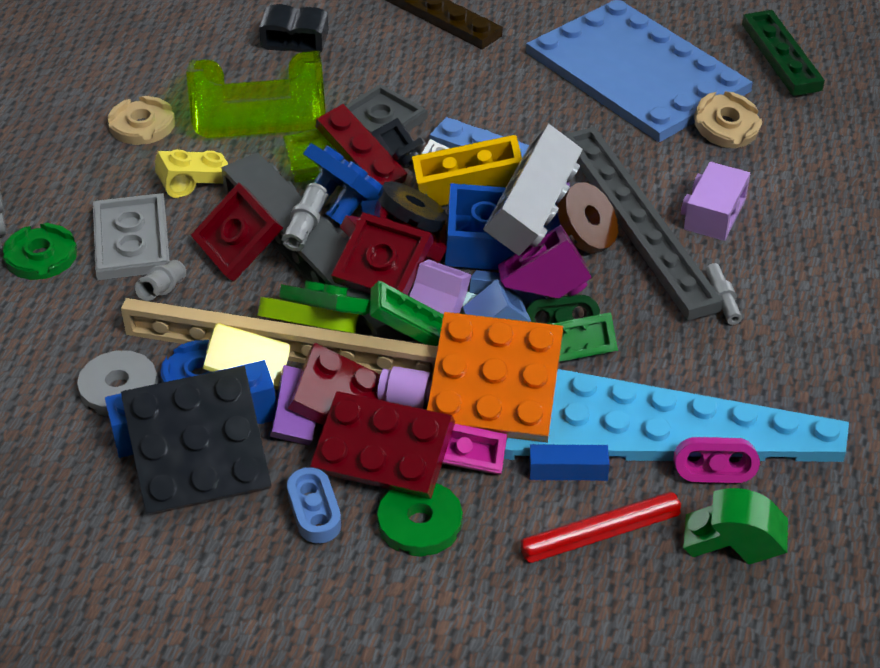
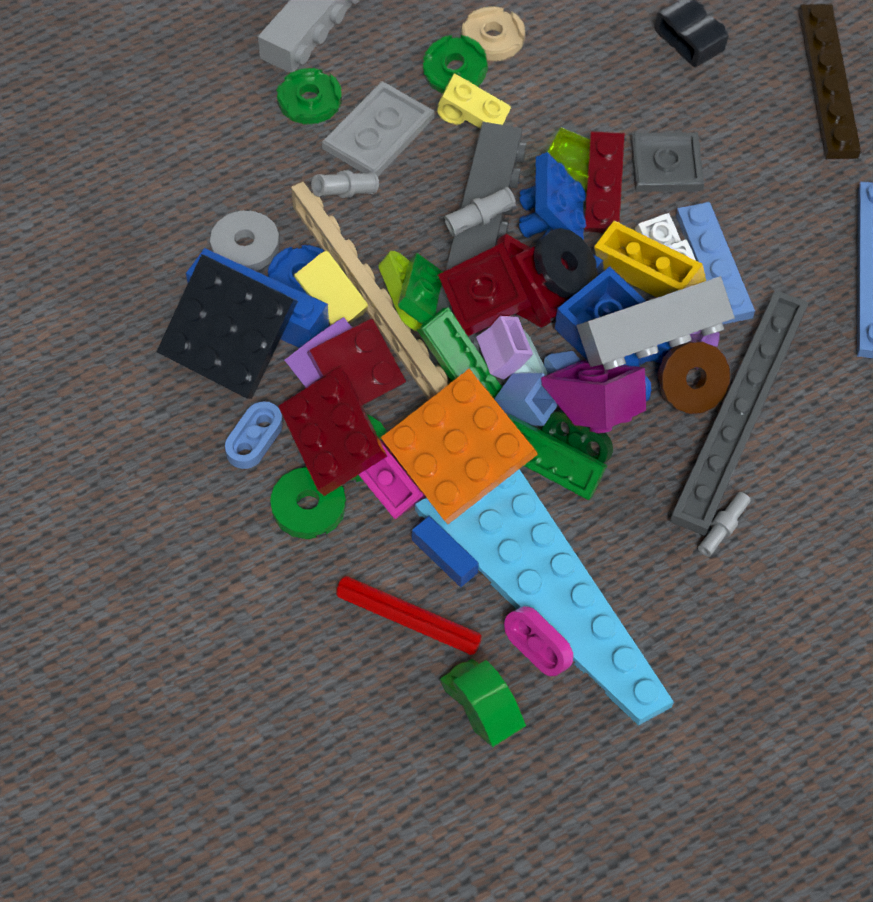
camera: 45 degrees right, 15 degrees up
(135, 139) = (450, 49): none -> green tile
(236, 231) = (436, 184): dark red plate -> none
(258, 105) = (581, 79): clear neon green windscreen -> none
(398, 142) = (638, 197): black bracket -> none
(405, 386) = (402, 397): lavender brick -> none
(715, 200) = (820, 444): lavender brick -> none

